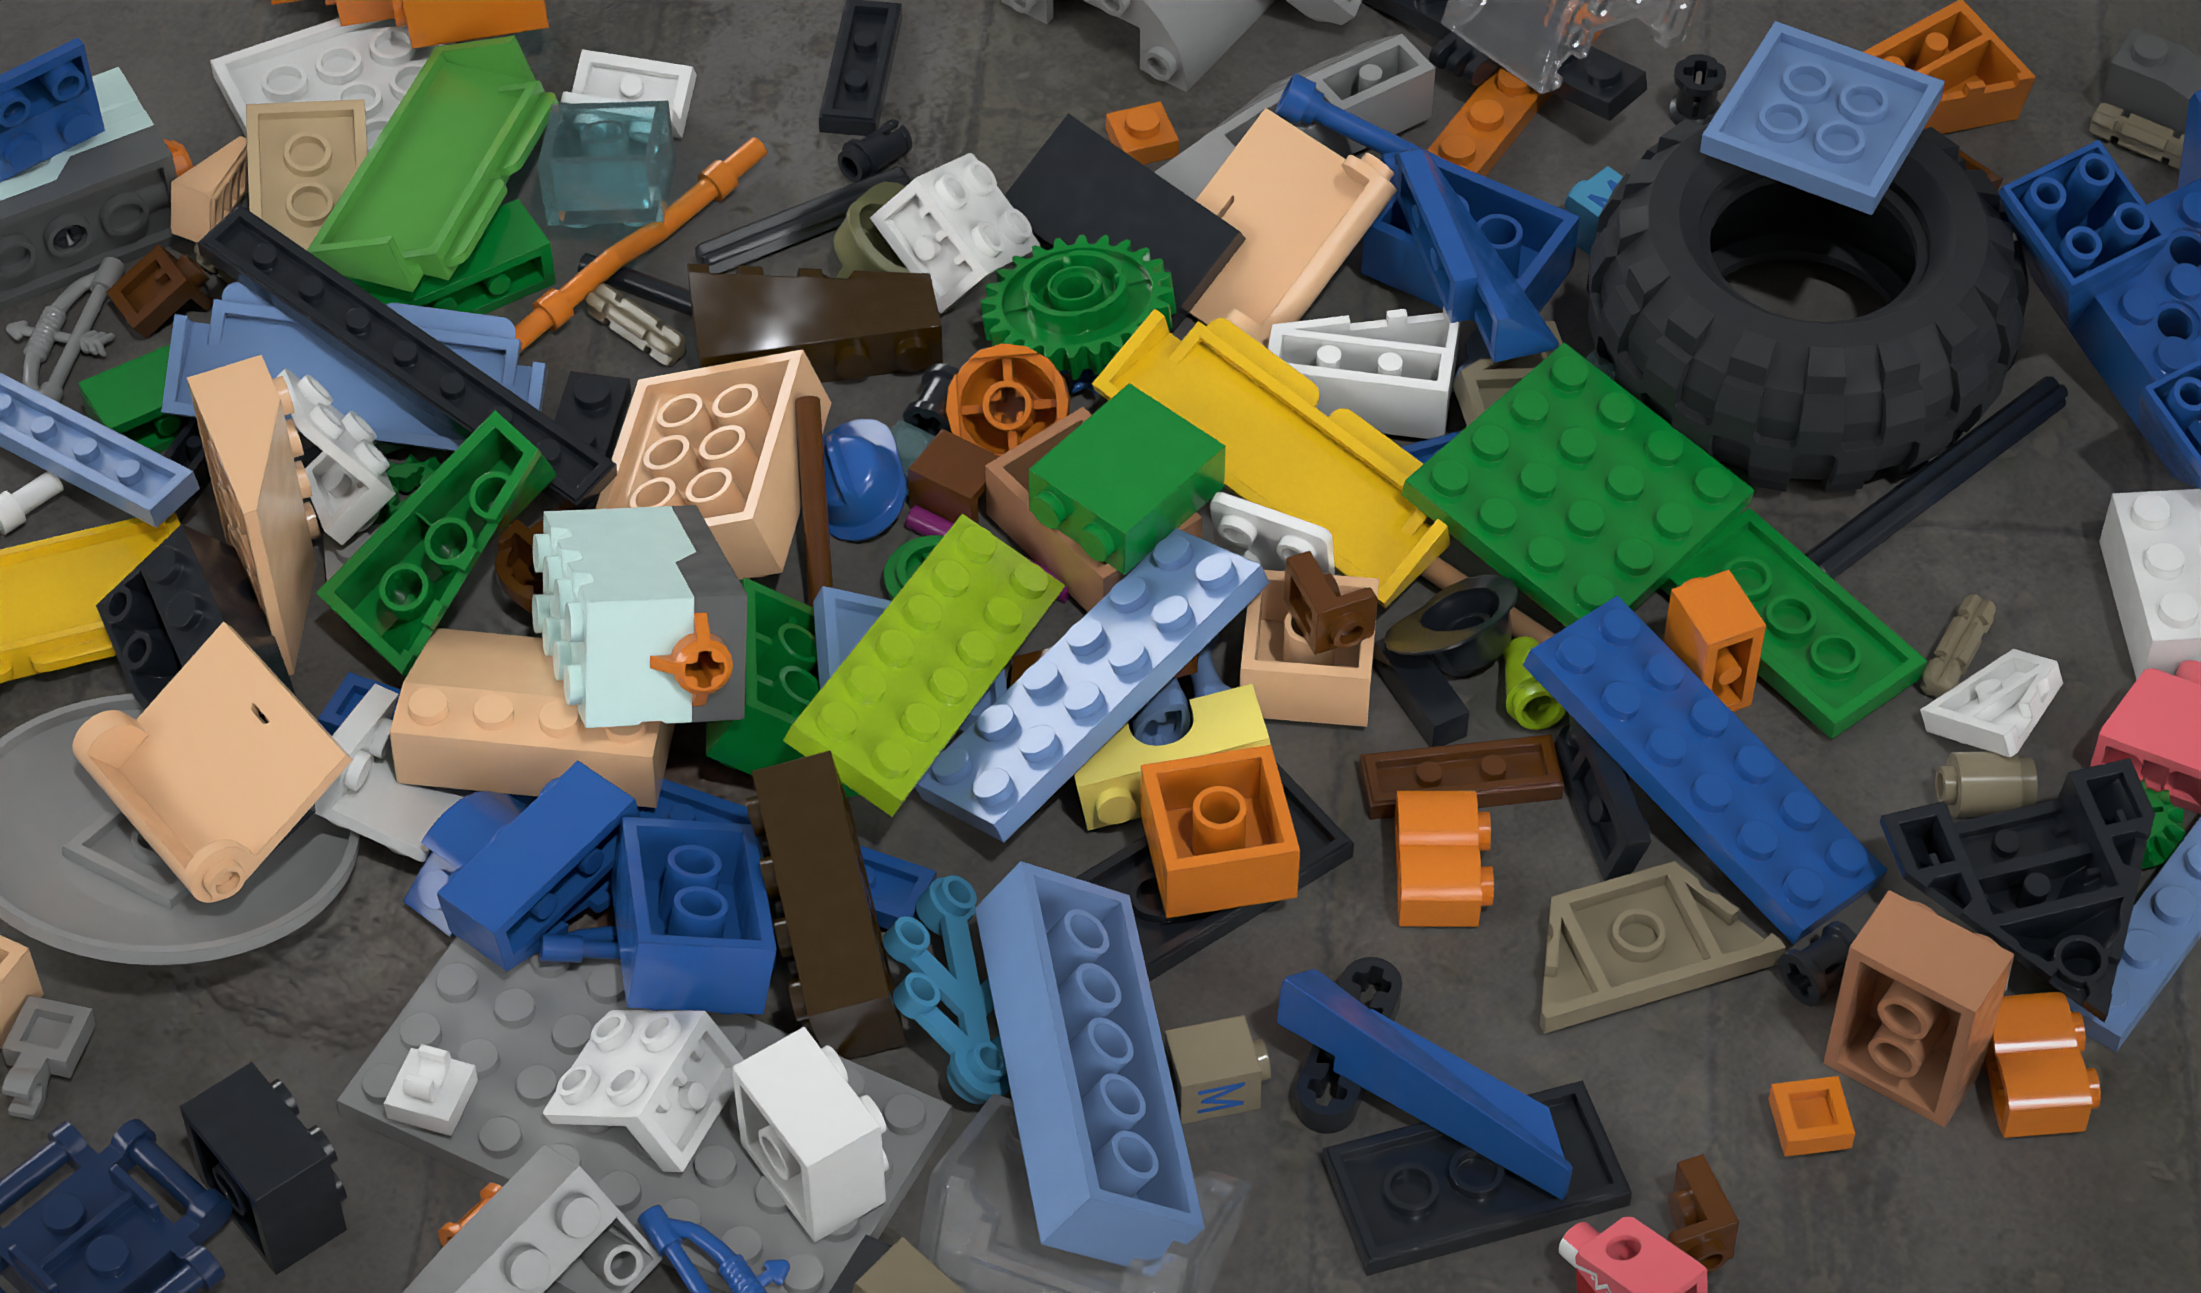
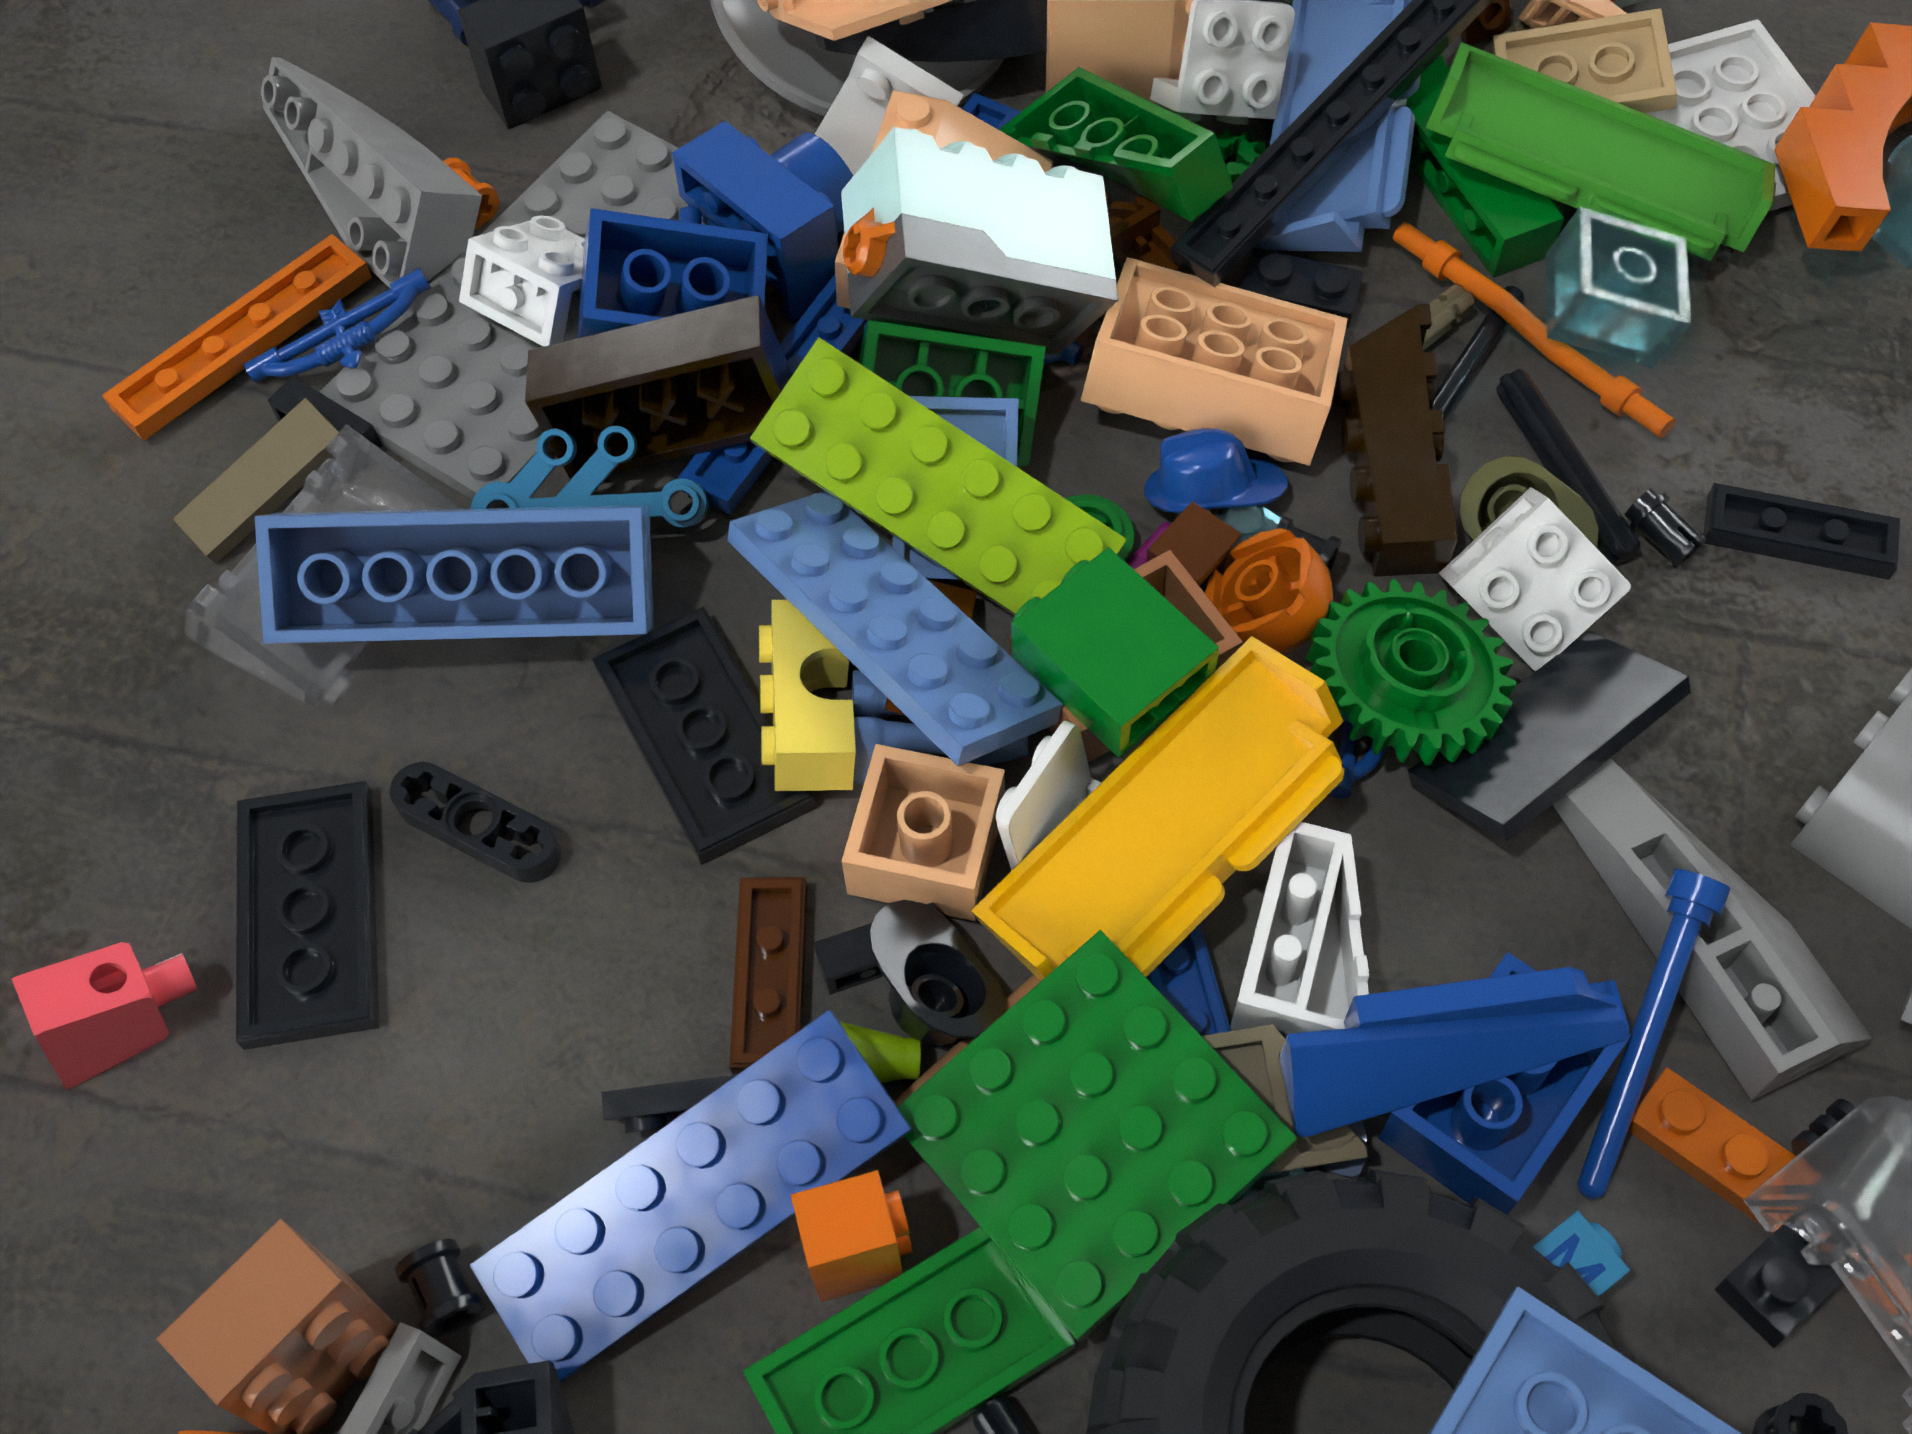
camera: 100 degrees right, 10 degrees up
(431, 1090) = (580, 149): white tile -> none
(630, 79) = (1730, 324): white bracket -> none
(811, 1132) = (428, 355): white brick -> none
(813, 495) = (1149, 429): reddish brown bar -> none
(1143, 133) = (1707, 784): orange plate -> none
(1216, 1068) = (464, 697): dark tan brick -> none
(1219, 831) = (689, 708): orange brick -> none
(1299, 221) = (1518, 896): light nougat door -> none
(1321, 611) = (918, 803): reddish brown bracket -> none
(1426, 1080) = (380, 855): blue wedge -> none
(1440, 859) = (655, 926): orange brick -> none
(1642, 943) = (514, 1110): dark tan wing -> none
(1702, 1215) = (177, 1102): reddish brown bracket -> none
(1811, 1116) = (253, 1215): orange plate -> none

